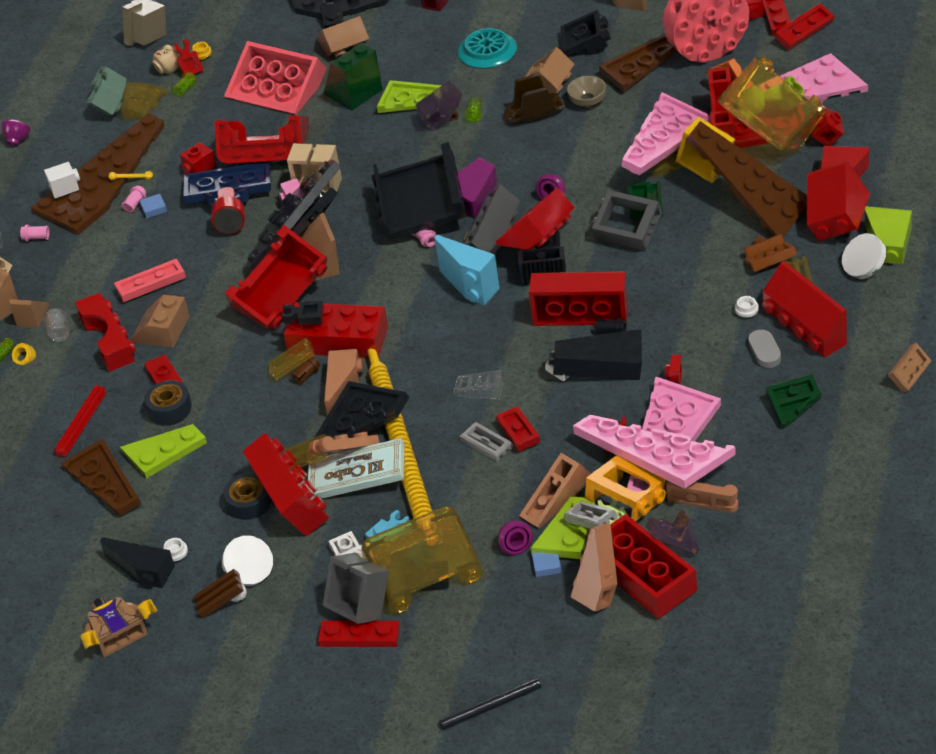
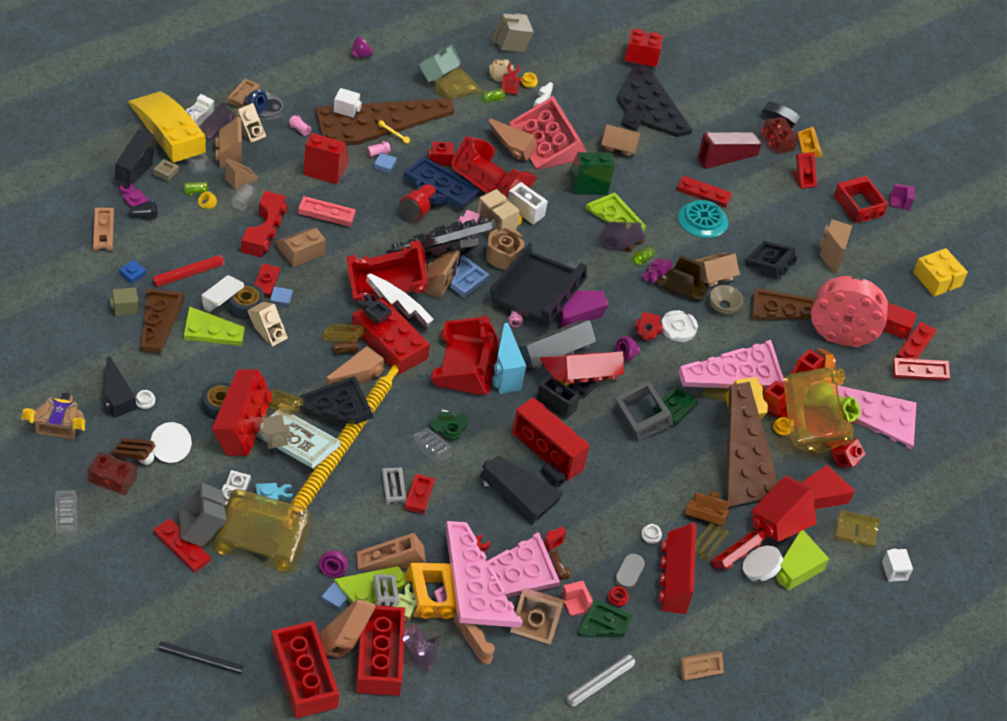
camera: 25 degrees right, 5 degrees up
(27, 461) = (132, 271): none -> blue plate
(54, 487) = (124, 301): none -> olive brick
(99, 236) = (325, 158): none -> red slope
(139, 411) = (221, 292): none -> white panel
(195, 377) = (281, 297): none -> medium blue tile
(210, 679) = (63, 500): none -> clear slope
(212, 402) = (268, 323): none -> tan slope
(223, 628) = (112, 473): none -> clear red brick
(232, 51) = (544, 94): none -> white slope
(251, 103) = (517, 142): none -> nougat slope
(311, 291) = (401, 299): none -> white slope
(328, 135) = (529, 203): none -> white brick
(335, 475) = (276, 431): none -> dark tan brick
(341, 443) = (304, 414): nougat plate -> none
(347, 237) = (468, 277): none -> medium blue wing
(353, 189) = (503, 247): none -> medium nougat brick
(422, 294) = (468, 356): none -> red windscreen
(461, 27) = (704, 191): none -> red plate
(476, 359) = (448, 422): none -> dark green plate
(498, 111) = (657, 268): none -> magenta plate
(549, 156) = (652, 319): none -> red brick
(570, 141) = (679, 326): none -> white tile
(597, 633) = (304, 669): none -> red brick
(714, 389) = (558, 566): none -> reddish brown arm
(738, 430) = (539, 615): none -> medium nougat slope
(749, 400) = (576, 598): none -> coral panel
(751, 147) = (782, 426): none -> yellow plate
(779, 372) = (620, 592): none -> red plate
(830, 262) = (738, 549): none -> red plate
(844, 445) = (600, 680): none -> light grey axle
(906, 169) = (867, 528): none -> clear yellow piece

